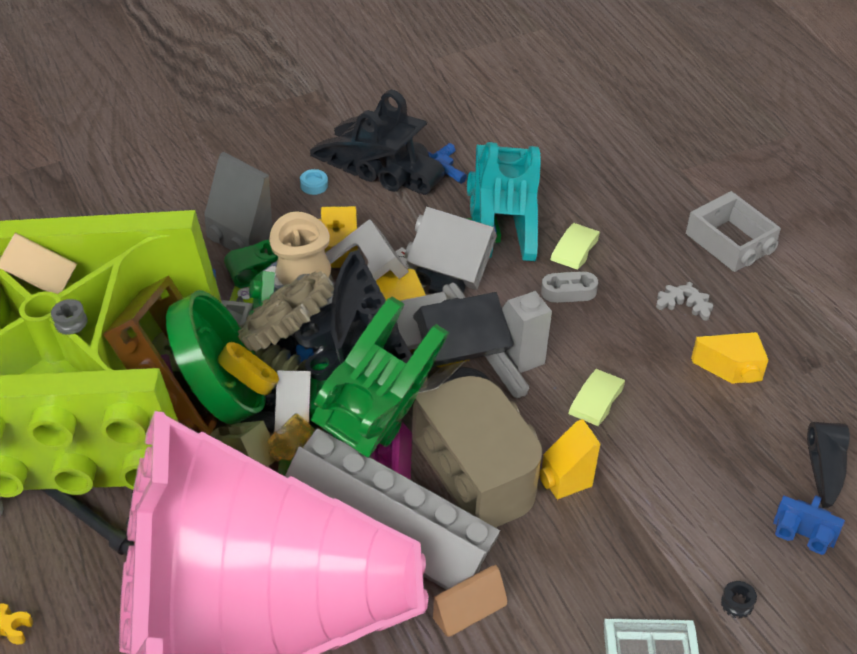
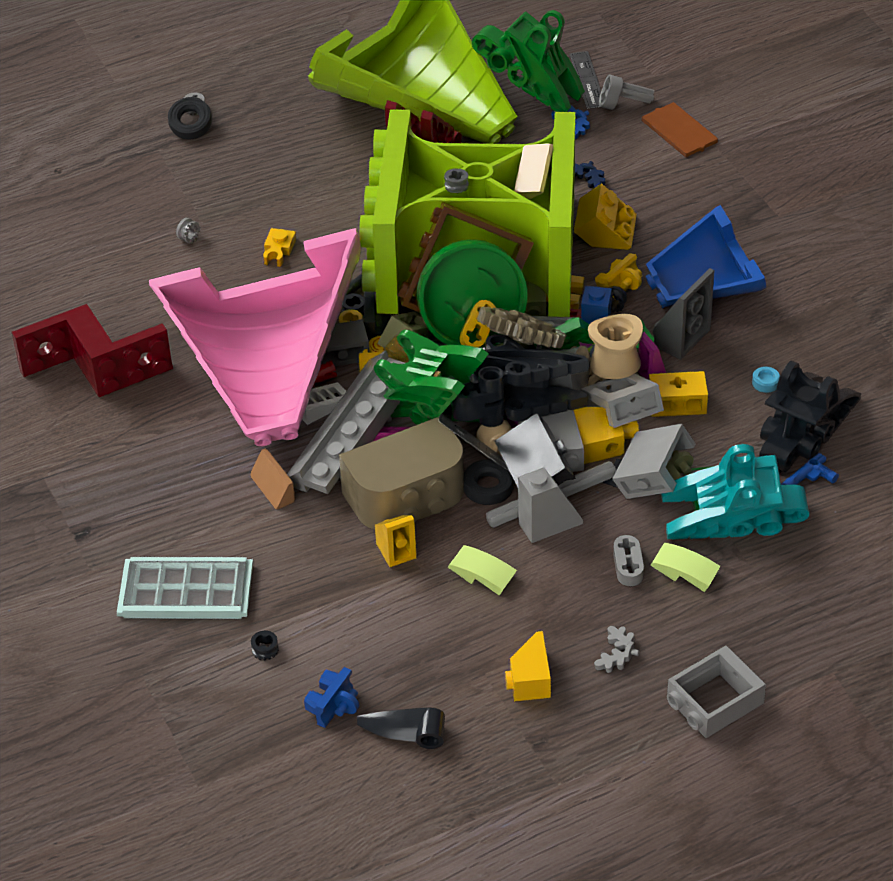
camera: 95 degrees right, 0 degrees up
(157, 188) = (704, 246): none -> blue cone

